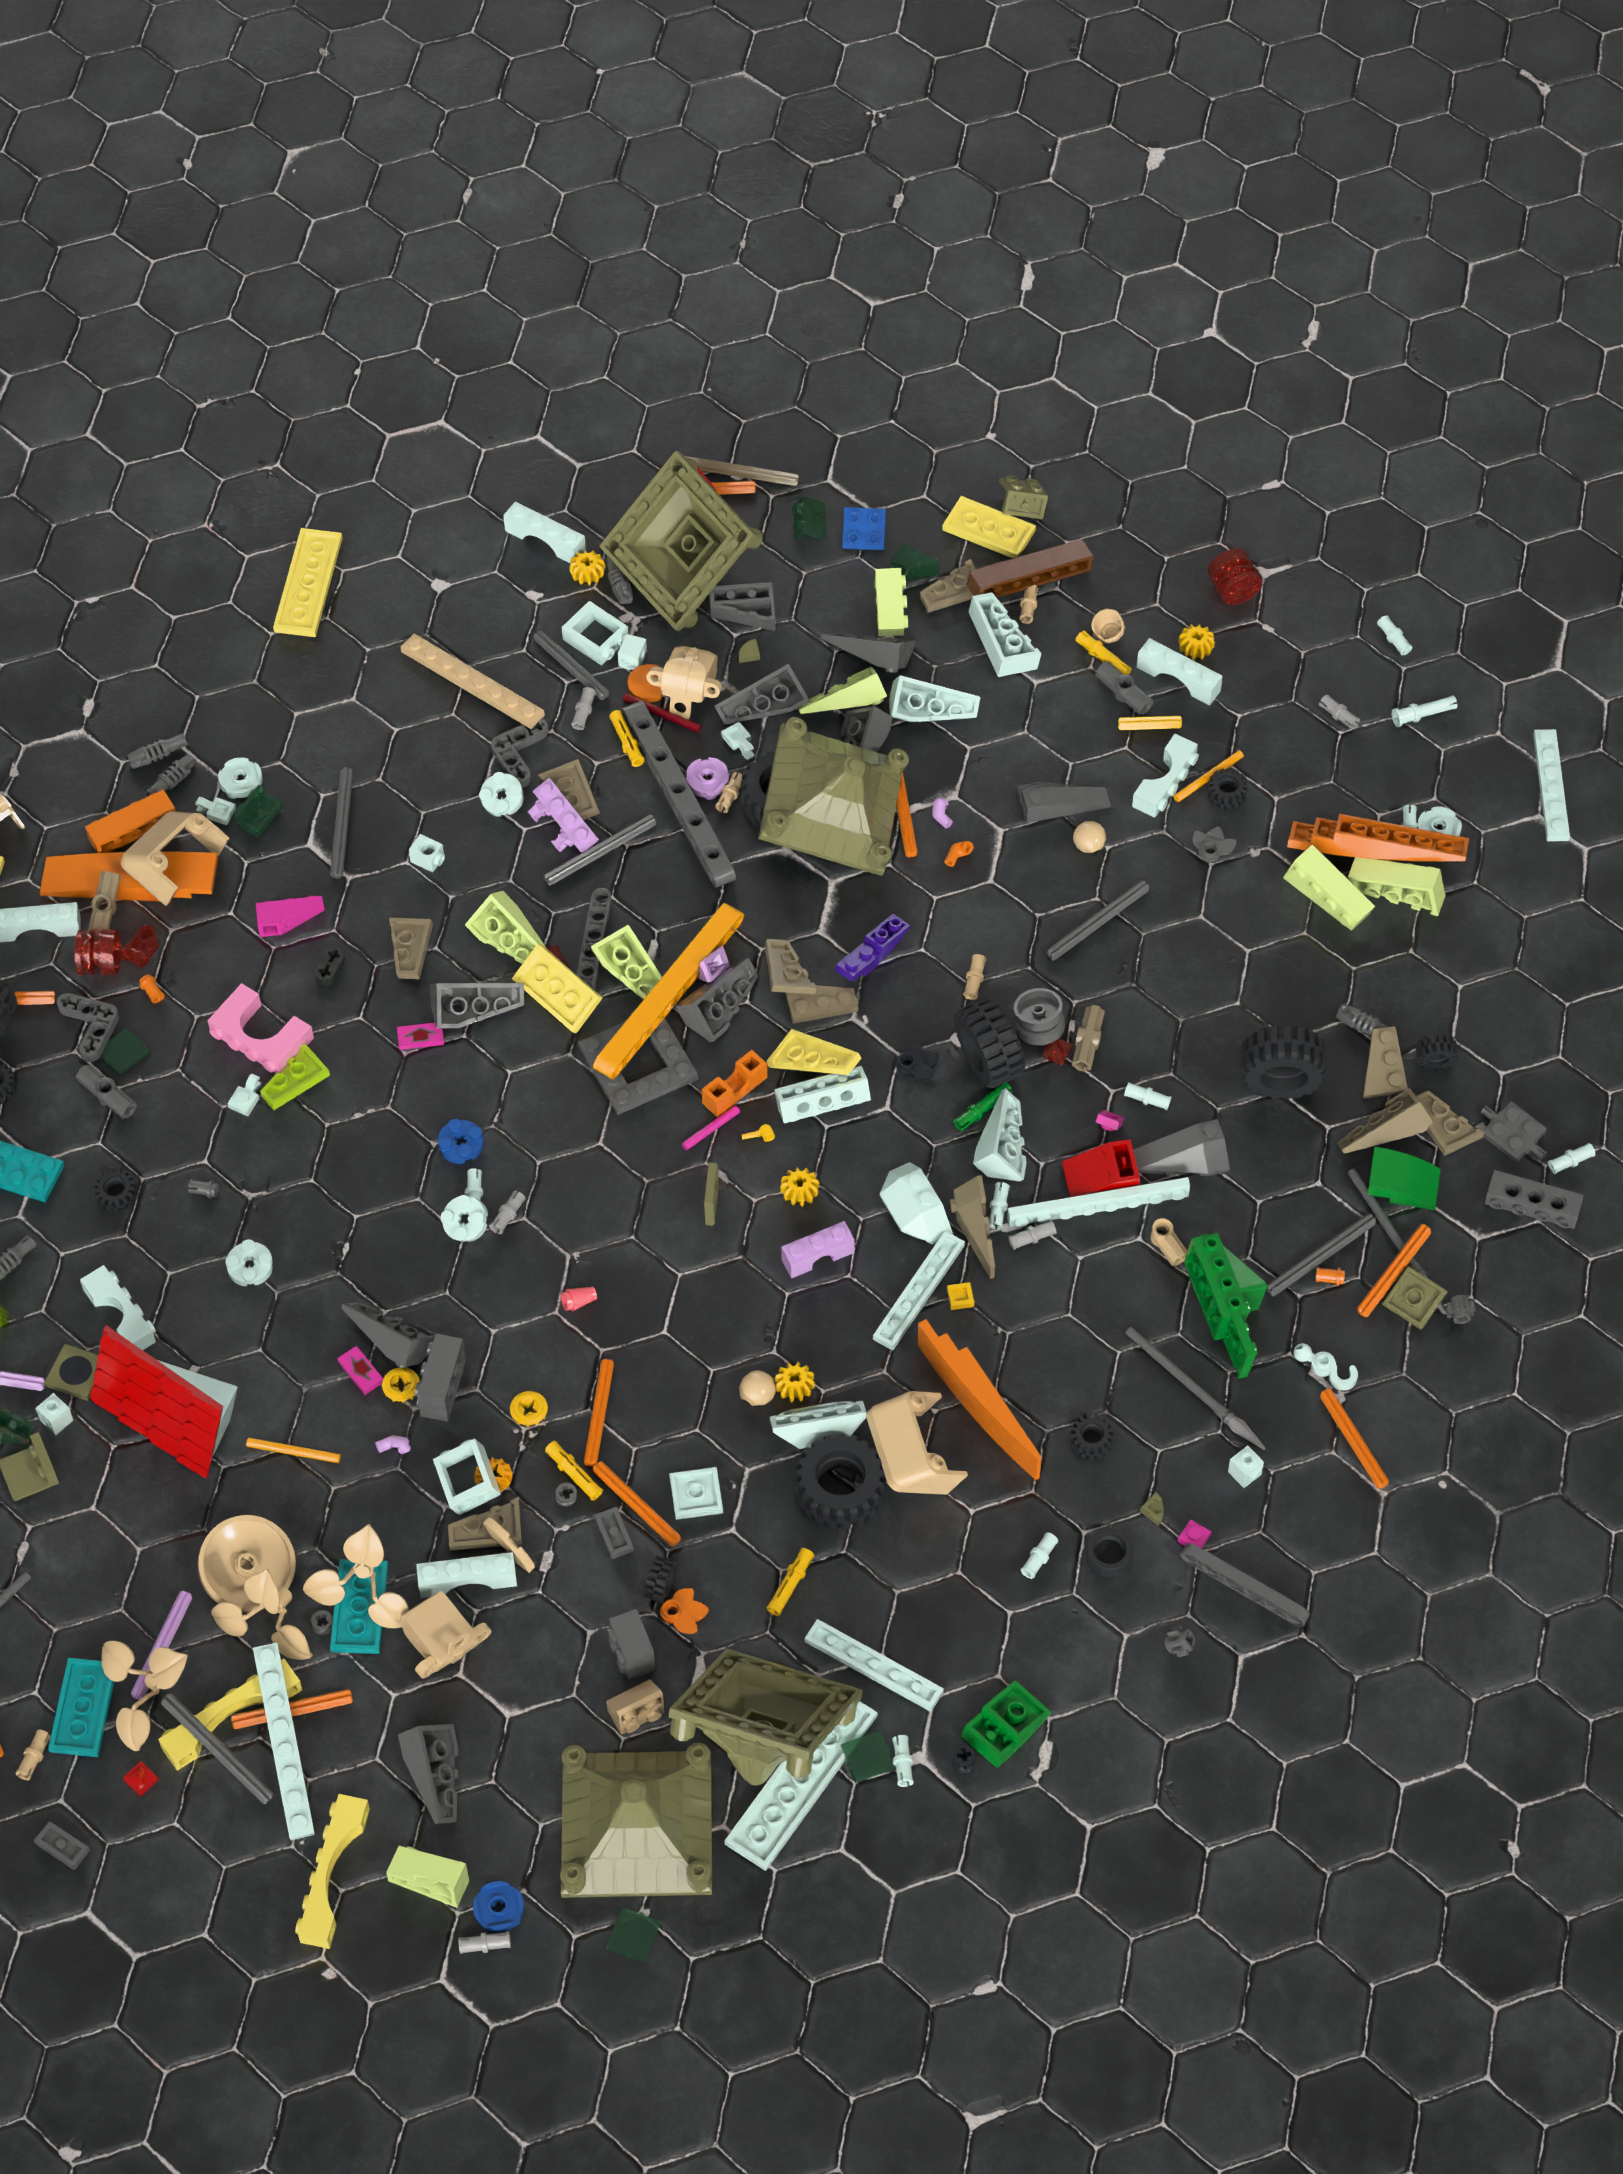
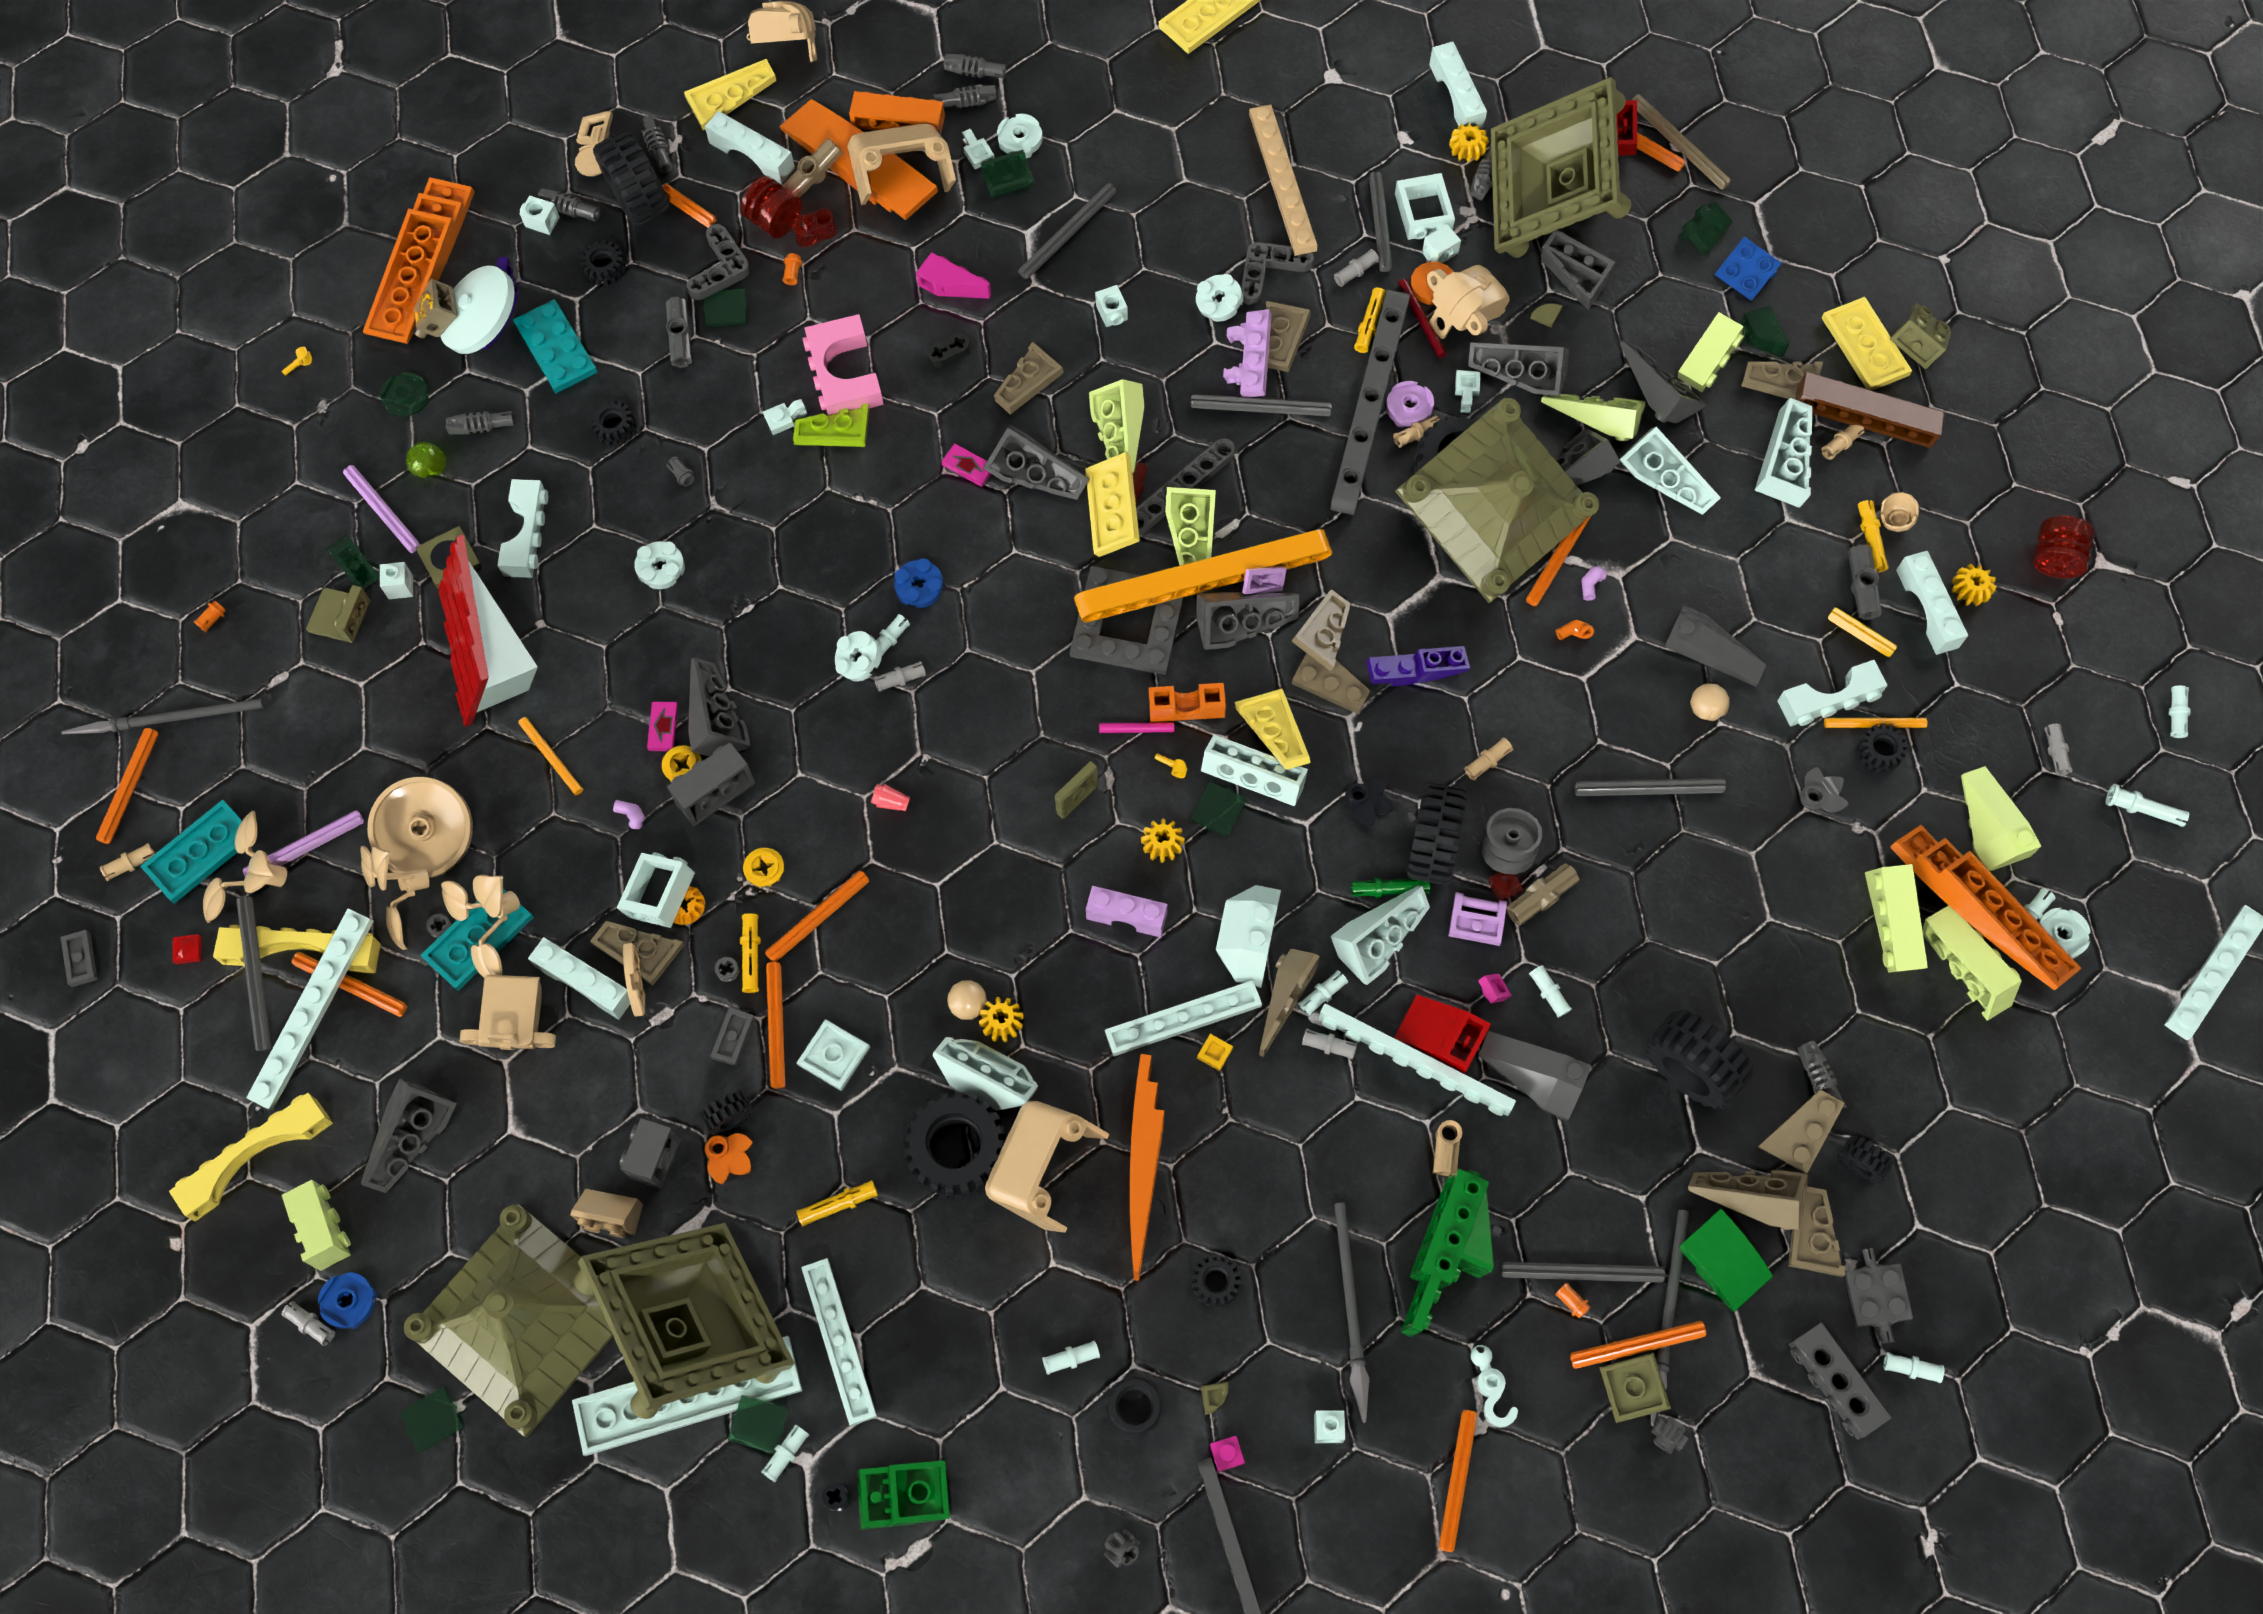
camera: 40 degrees right, 10 degrees up
(818, 1141) = (1218, 809): none -> clear green piece
(1062, 1090) = (1474, 925): none -> lavender plate
(1343, 787) = (1996, 823): none -> yellowish green wedge

